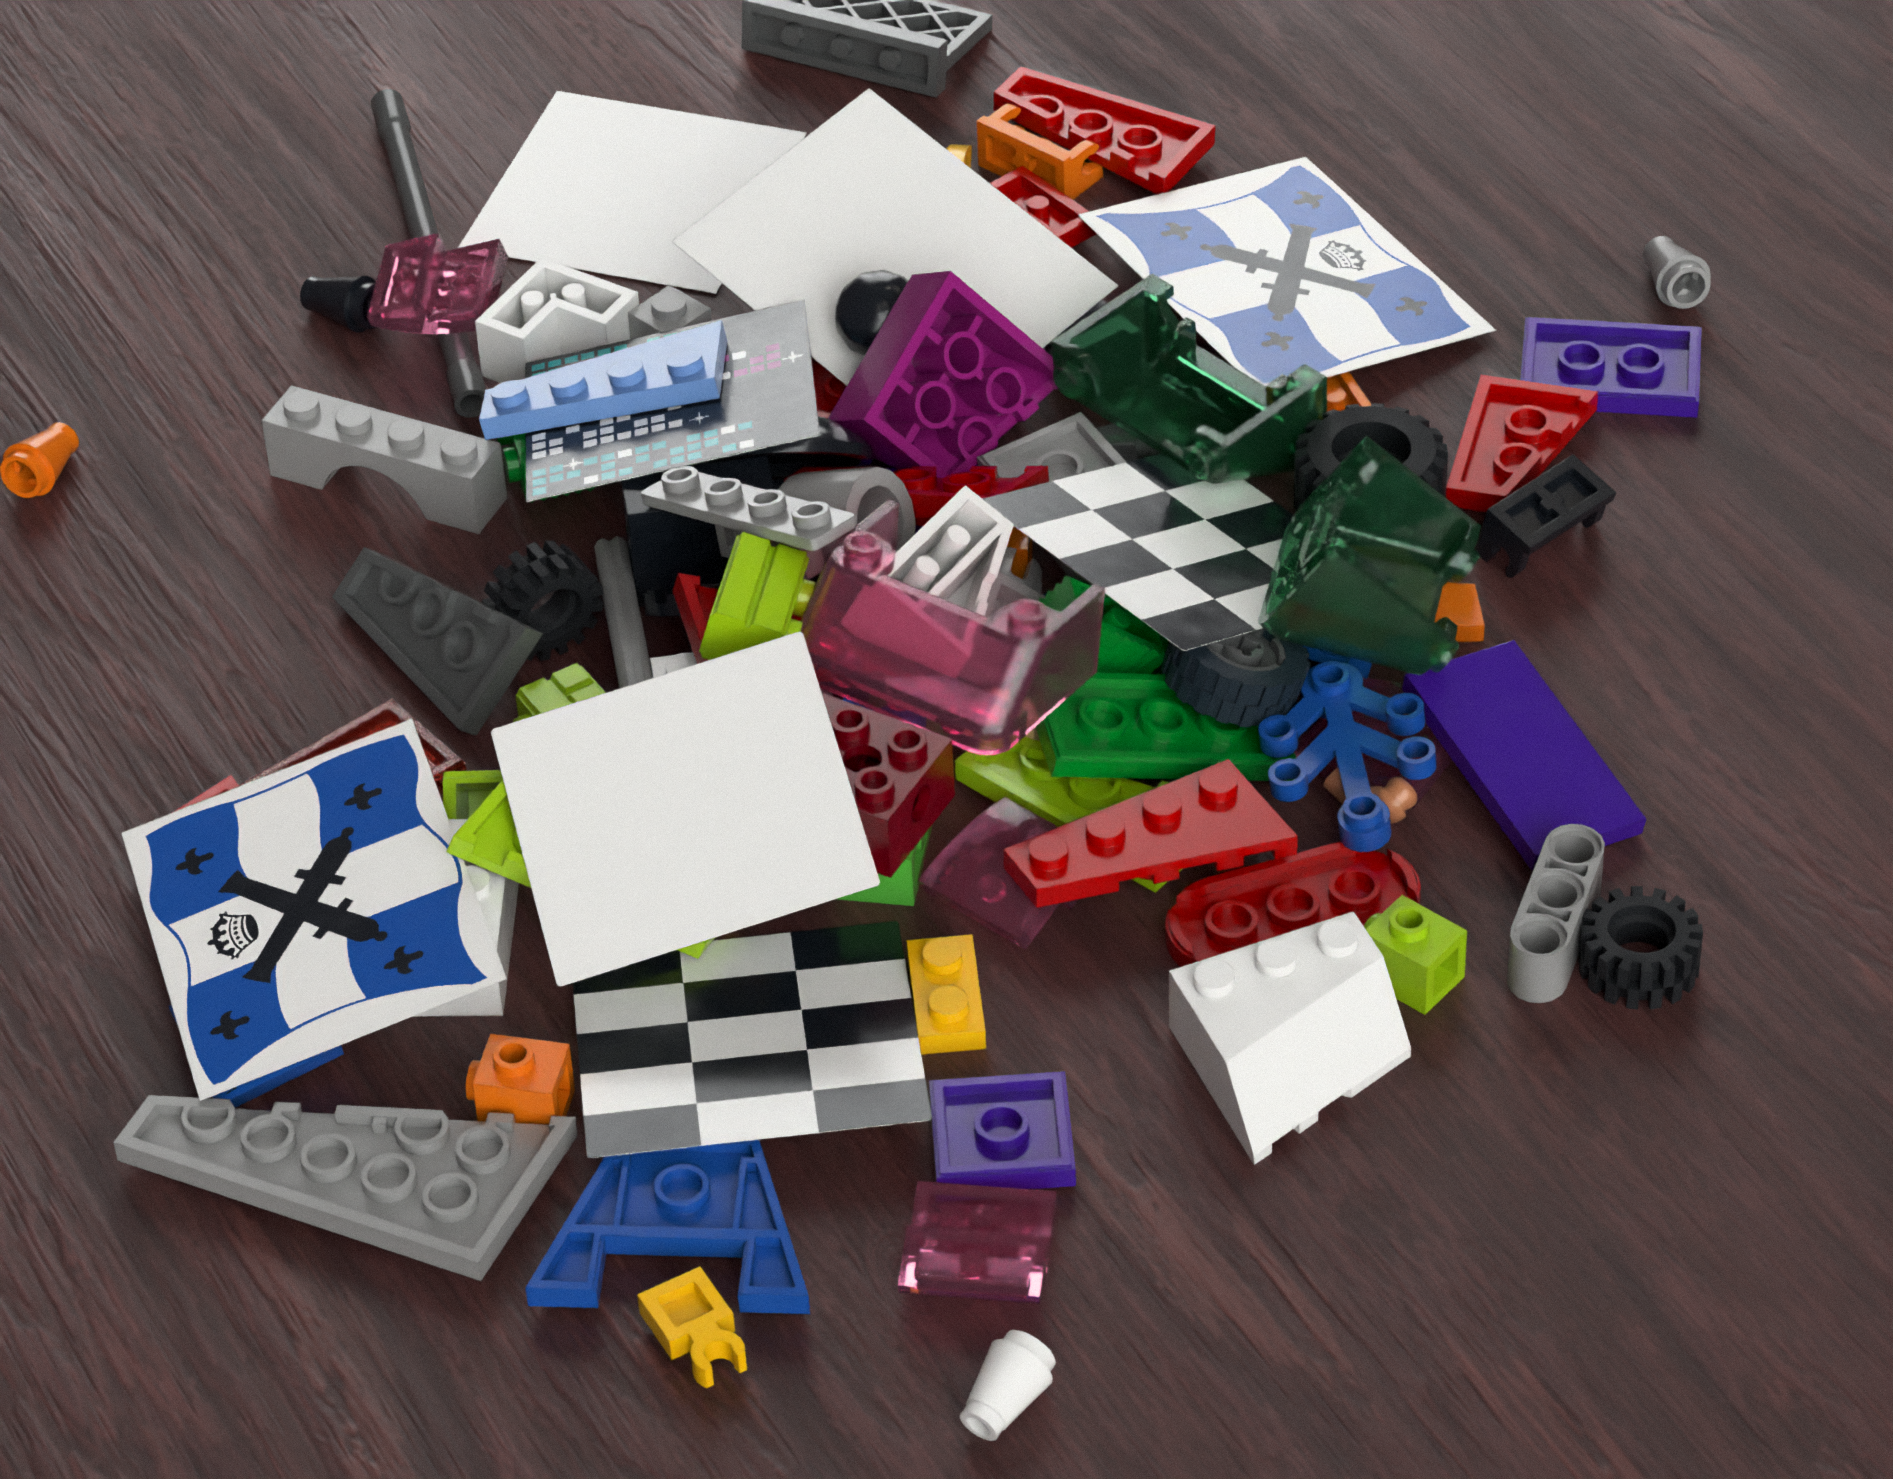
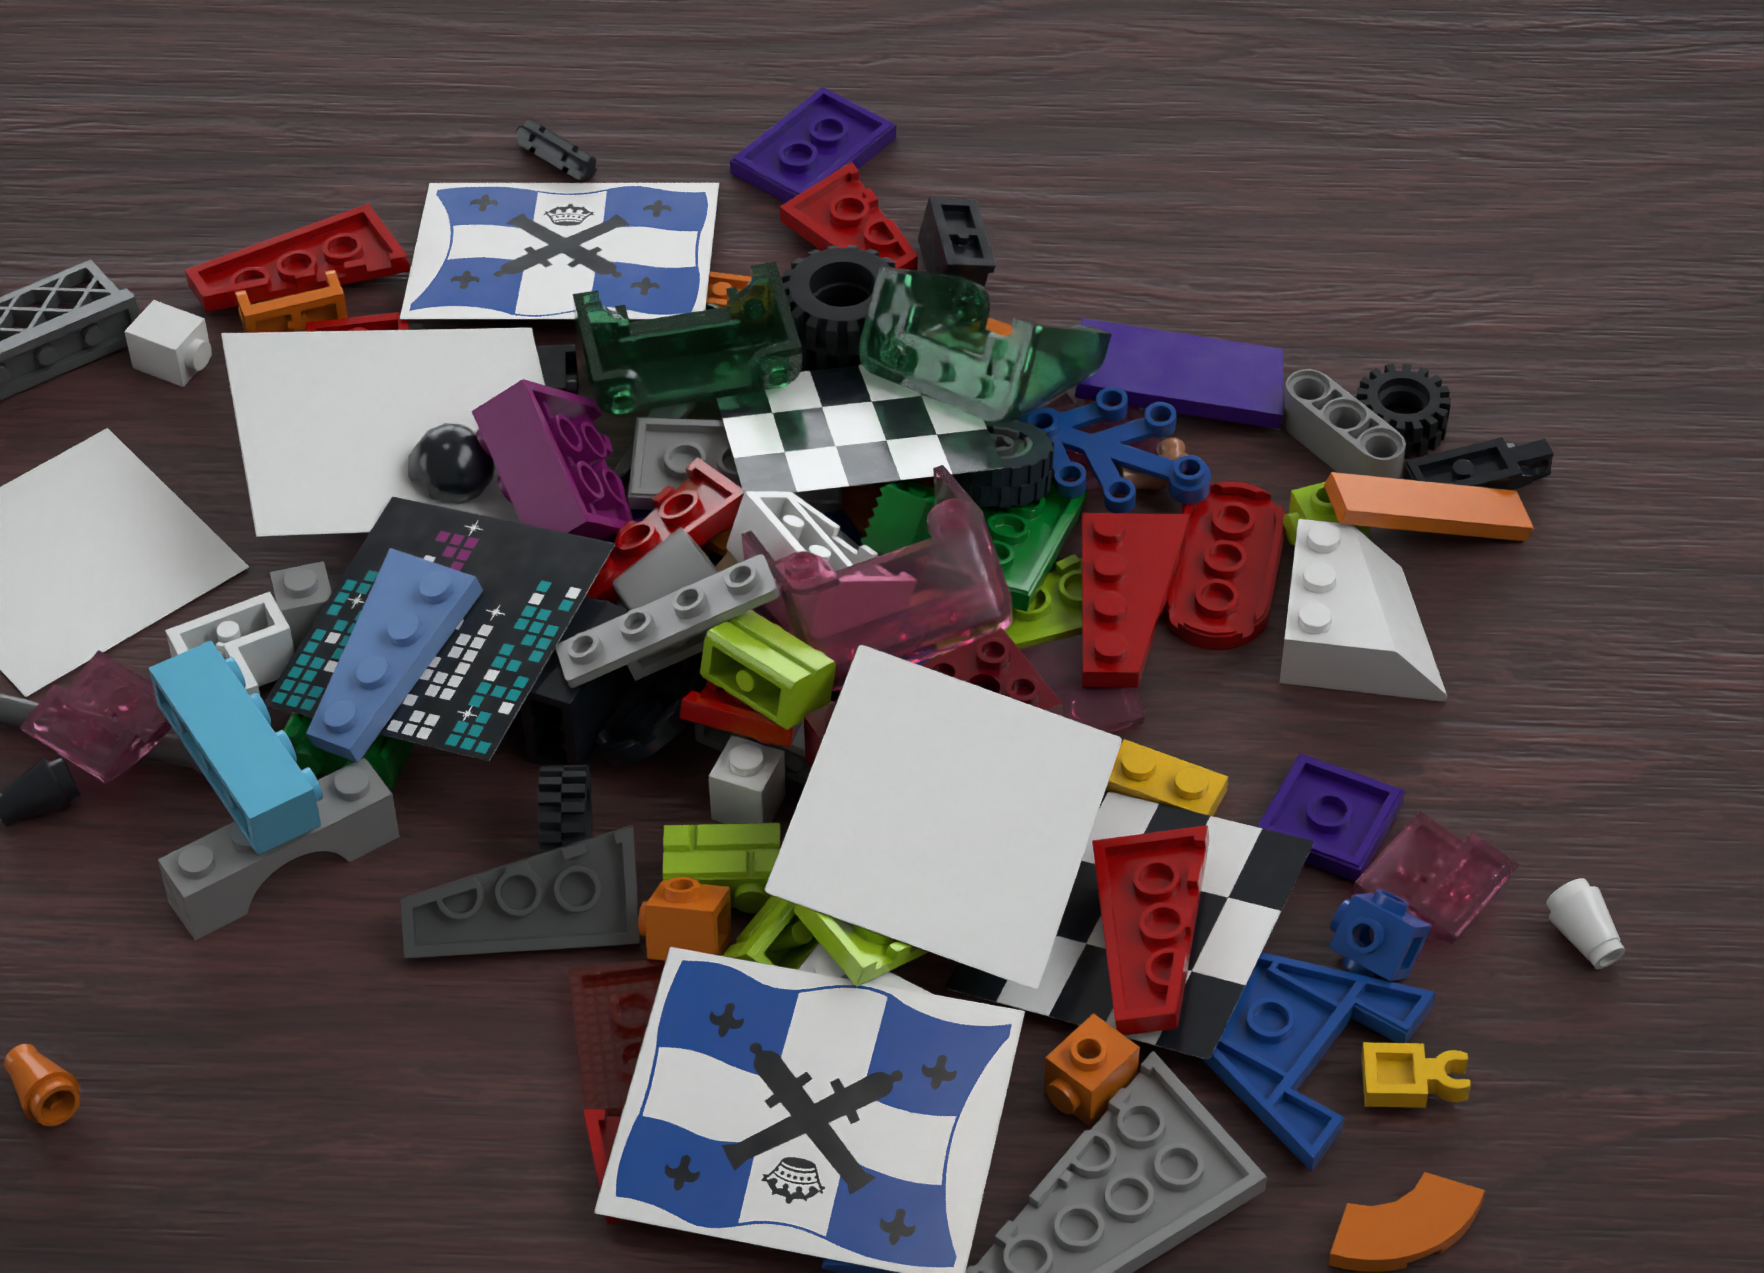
camera: 60 degrees left, 5 degrees up
(419, 350) = (236, 746): none -> medium azure brick
(468, 726) = (686, 918): none -> orange brick
(507, 1406) = (1405, 1230): none -> orange tile
(622, 612) = (641, 784): light grey axle -> none
(722, 1036) = (1149, 918): none -> red wing
(844, 1220) = (1378, 935): none -> blue brick
(925, 98) = (168, 343): none -> white brick
(1423, 206) = (556, 150): none -> black axle
(1484, 1014) = (1428, 507): none -> orange tile
(1603, 1044) = (1484, 465): none -> black hinge
(1678, 275) = (756, 68): light grey cone -> none

